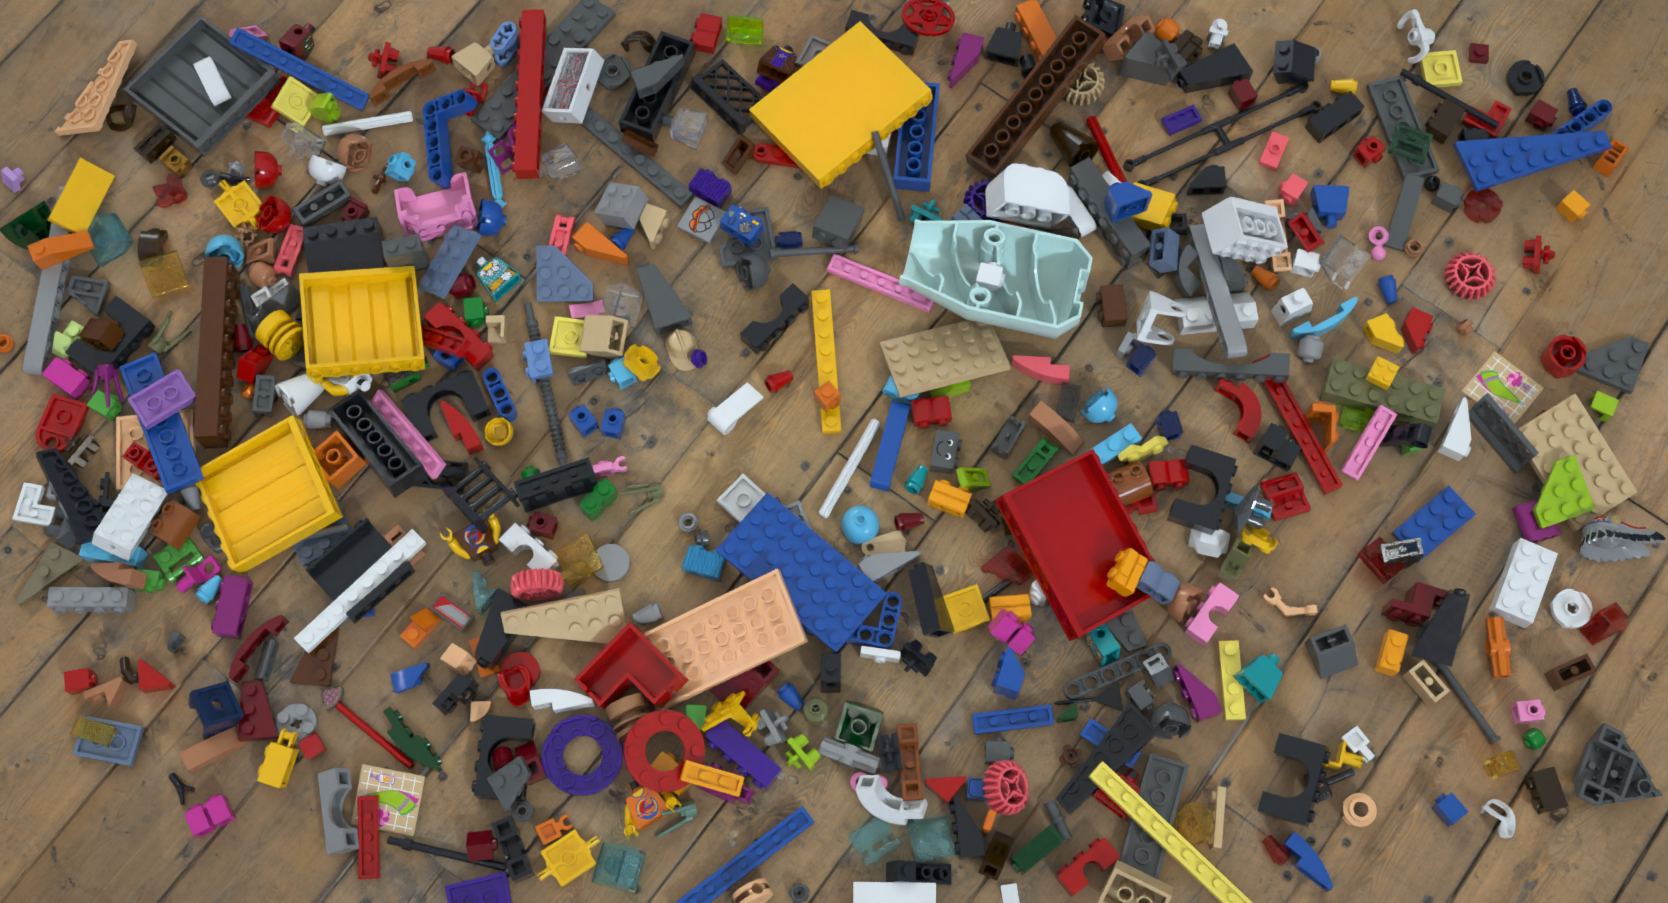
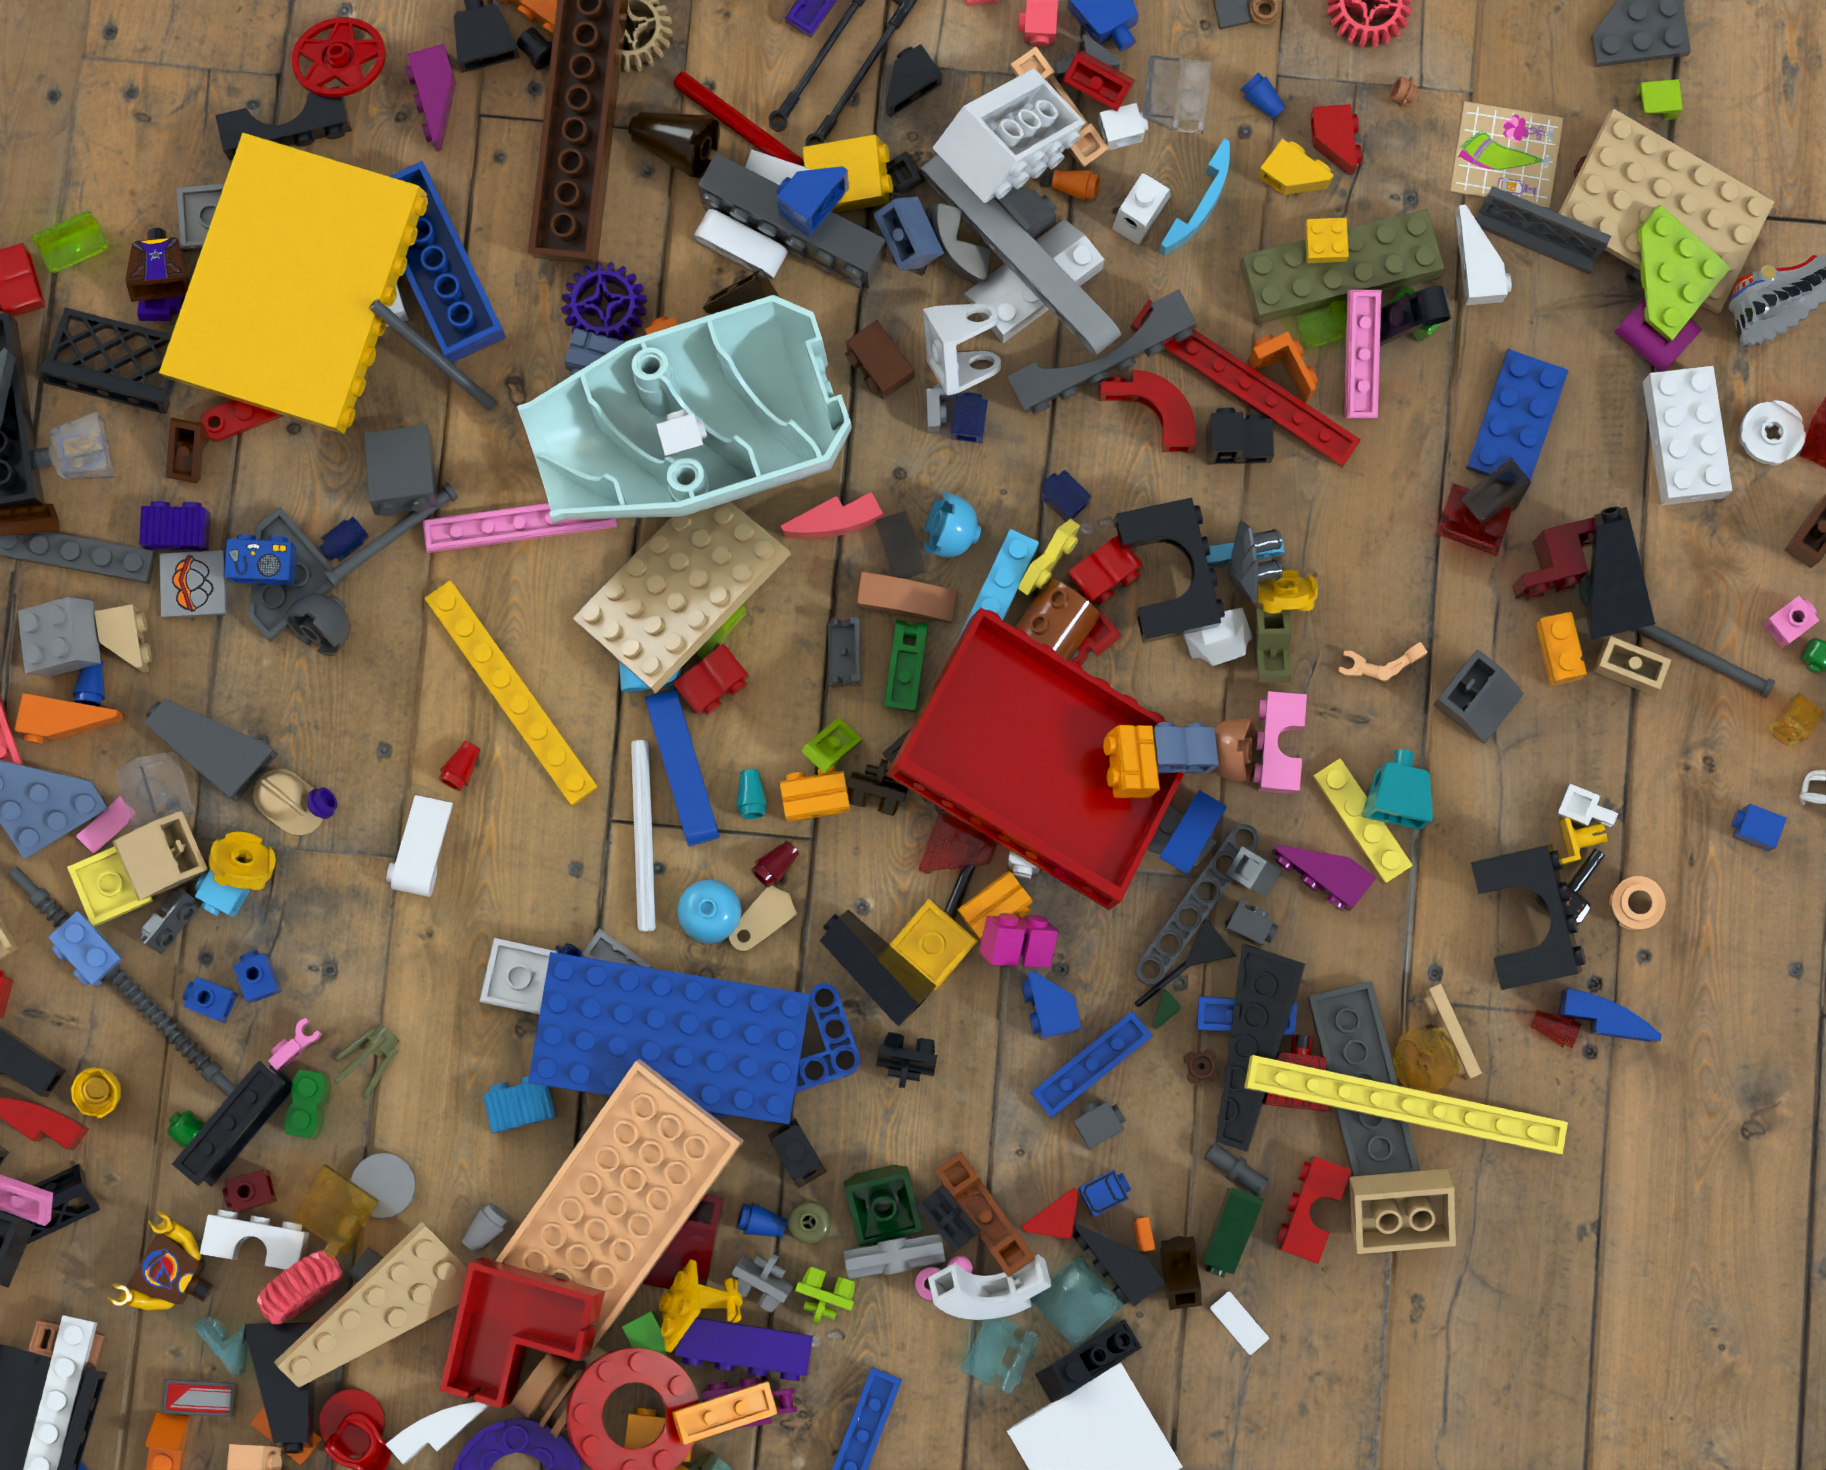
camera: 30 degrees left, 10 degrees up
(470, 510) = (133, 1238): black fence -> none
(497, 387) = (46, 1031): blue beam -> none
(685, 517) = (449, 1052): light grey plate -> none
(702, 538) = (493, 1070): dark grey plate -> none
(759, 335) = (389, 714): black arch -> none
(827, 396) = (549, 752): orange brick -> none
(880, 655) = (851, 1086): white plate -> none
(886, 564) = (777, 953): light grey slope -> none
(918, 213) = (511, 381): teal hips -> none
(944, 452) = (766, 728): dark grey brick -> none
(1011, 786) = (1140, 1170): coral gear -> none
(1028, 196) = (661, 266): white brick -> none
(1103, 645) = (1163, 887): teal torso -> none
(1137, 629) = (1193, 832): none -> blue slope
(1171, 720) = (1310, 932): dark grey cylinder -> none
(1287, 496) = (1288, 503): red slope -> none
(1310, 349) = (1202, 257): light grey head -> none
(1378, 252) = (1218, 45): bright pink plate -> none
(1498, 647) = (1702, 551): orange piece -> none
(1563, 356) = (1562, 72): red brick -> none

